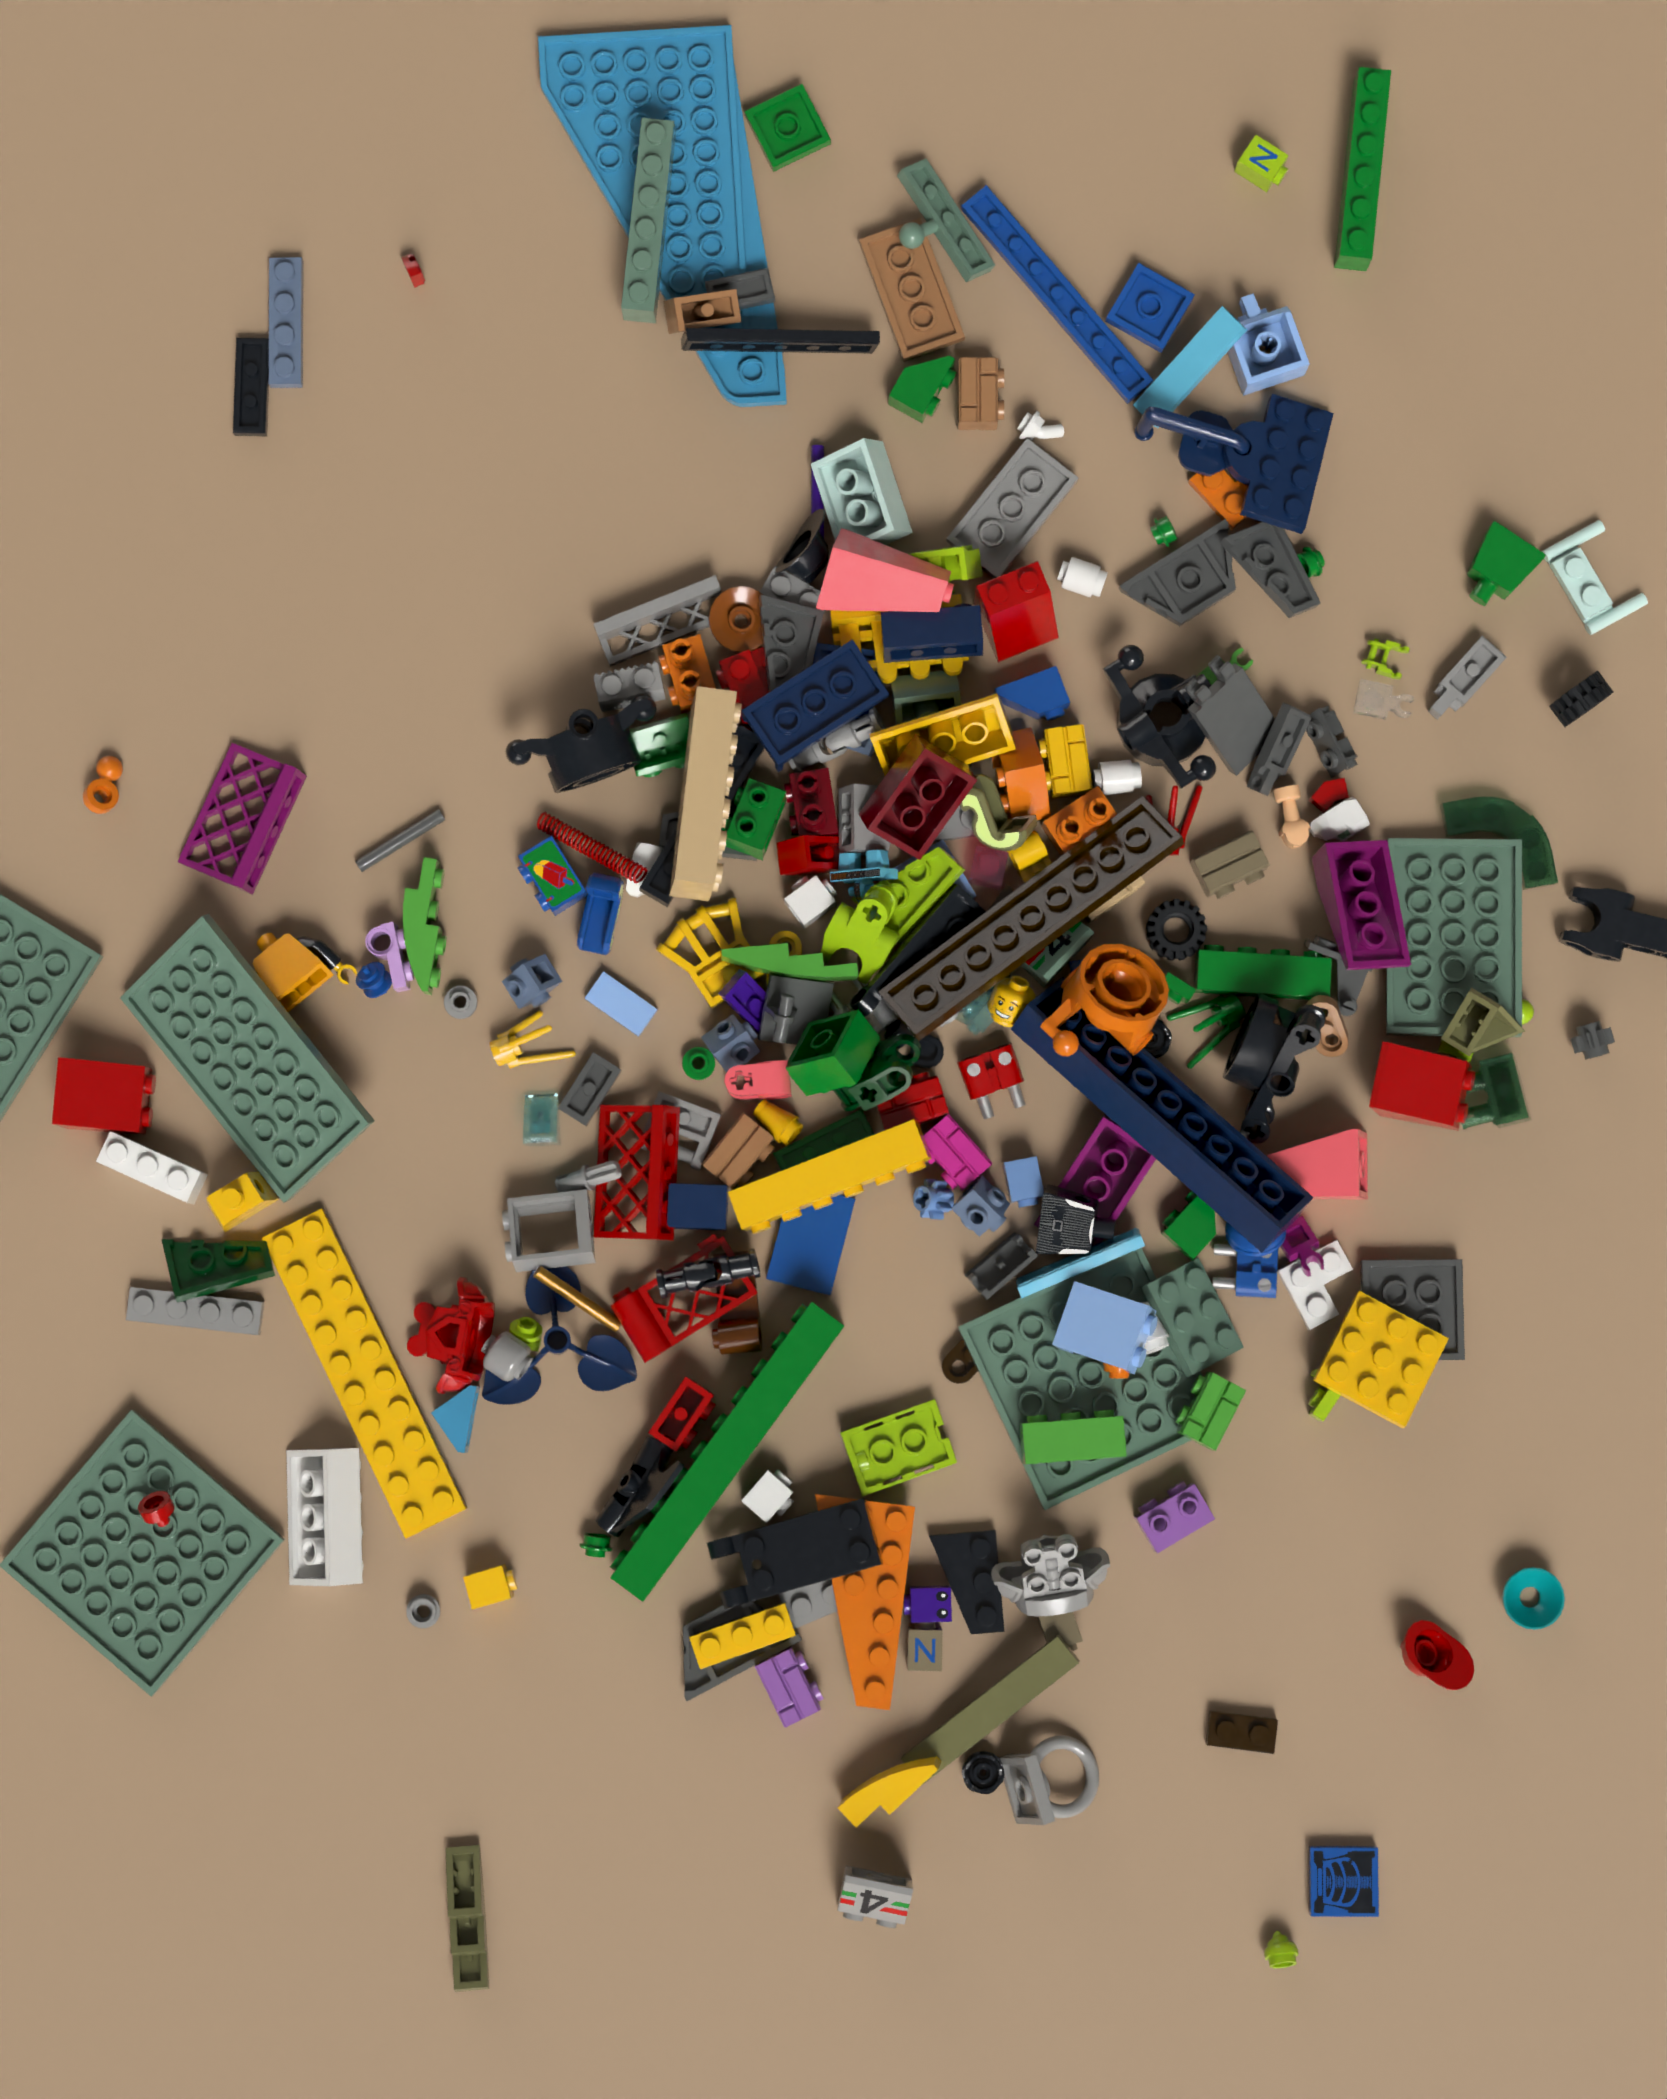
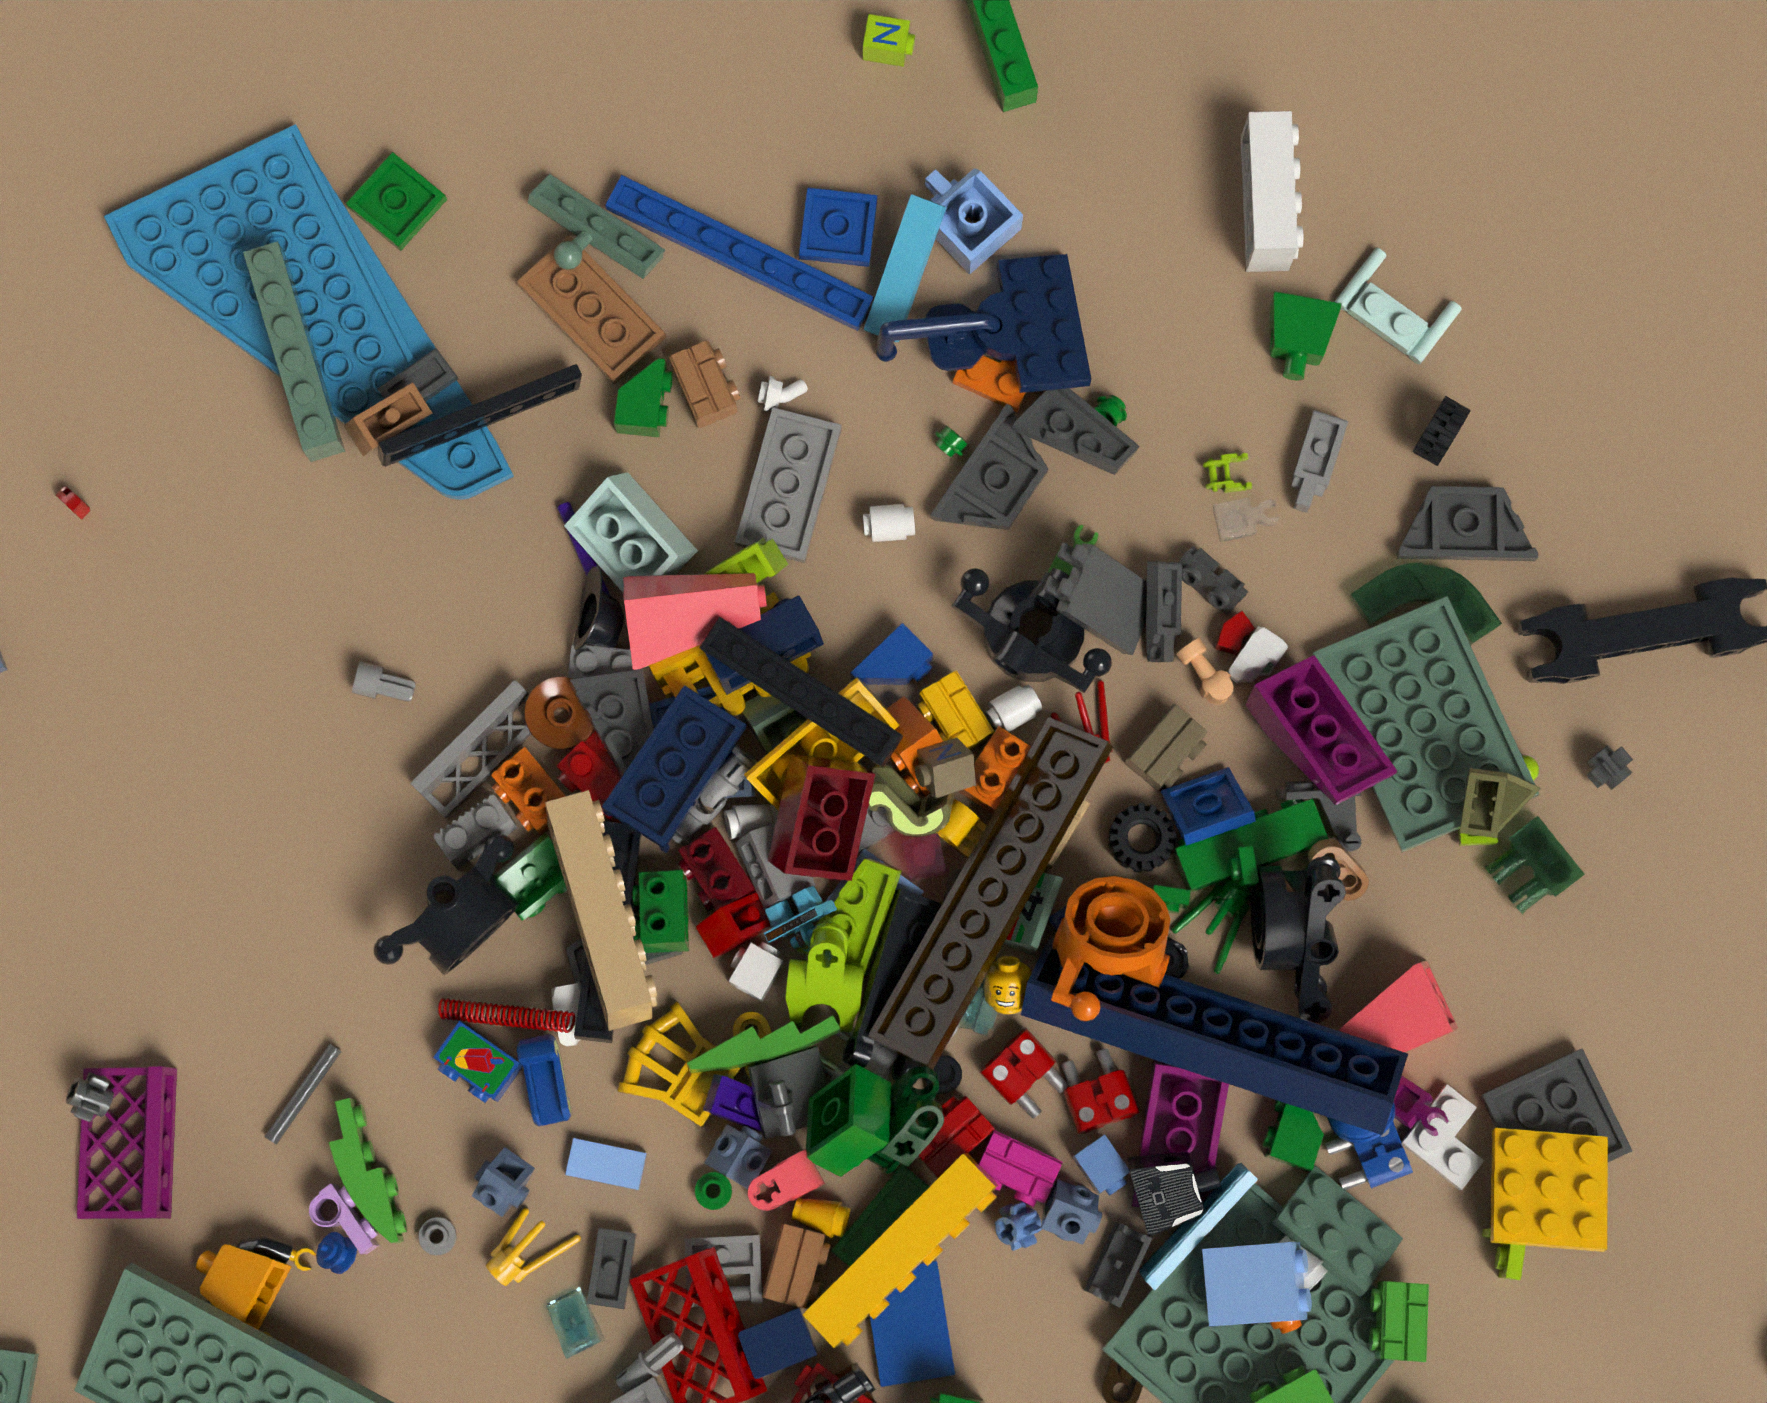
camera: 25 degrees left, 5 degrees down
(228, 767) = (89, 1097): none -> dark grey gear
(597, 525) = (371, 681): none -> light grey piece
(857, 772) = (746, 818): none -> white cone
(946, 685) = (801, 692): none -> black tile
(1017, 611) = (839, 585): red slope -> none
(1038, 800) = (945, 767): none -> dark tan brick
(1045, 1128) = (1100, 1100): none -> red piece
(1242, 927) = (1208, 806): none -> blue plate
(1248, 989) = (1244, 867): none -> green plate
(1421, 1087) = (1463, 890): red slope -> none
(1528, 433) = (1269, 191): none -> white brick
(1566, 789) = (1467, 526): none -> dark grey wing

